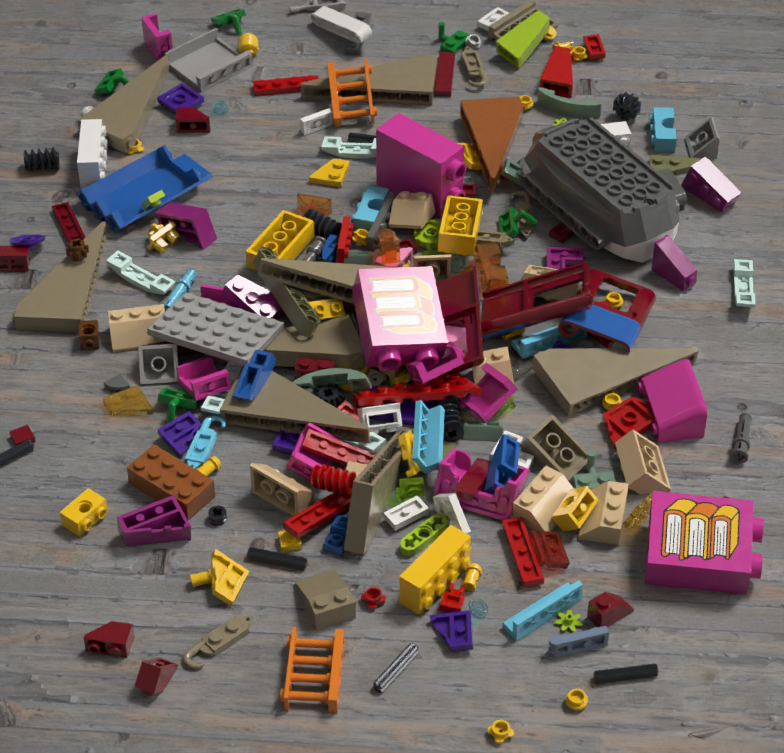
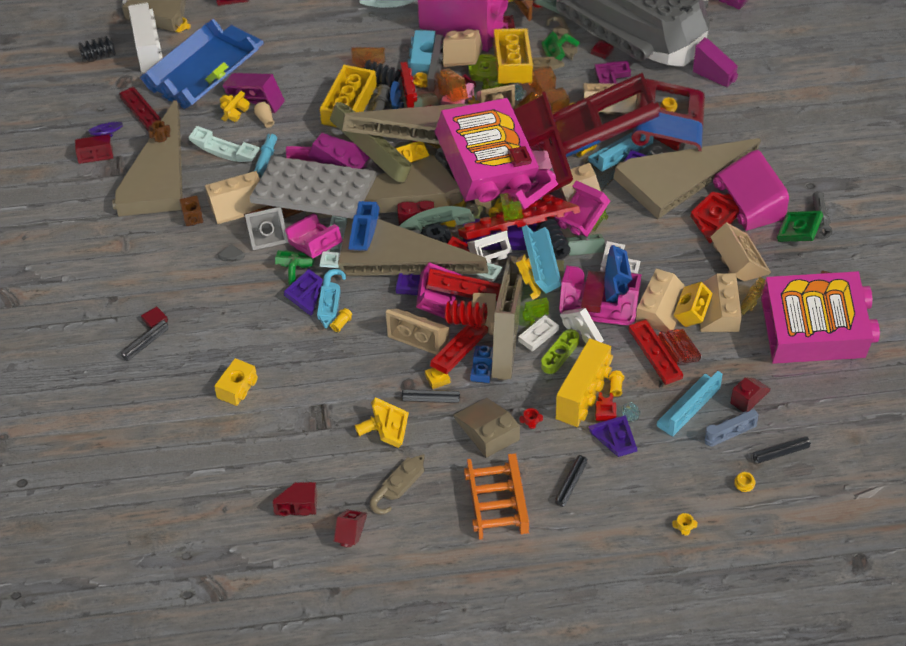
camera: 10 degrees left, 5 degrees up
(127, 402) = (246, 269): clear yellow wing -> none
(154, 523) = (308, 382): magenta wedge -> none
(164, 475) = (311, 339): dark orange brick -> none
(191, 248) = (263, 112): none -> tan cone
(217, 510) = (360, 360): black bush -> none
(331, 173) = (374, 24): yellow wing -> none
(409, 381) = (511, 209): none -> clear neon green bracket
(429, 328) = (519, 156): none -> dark red tile
(556, 448) = (658, 250): dark tan slope -> none
(569, 621) = (715, 409): lime plant -> none
(592, 478) = (697, 274): sand green plate -> none
(611, 401) = (694, 199): yellow plate -> none
(714, 446) = (800, 226): none -> green tile
(743, 283) = (779, 73): light aqua slope -> none

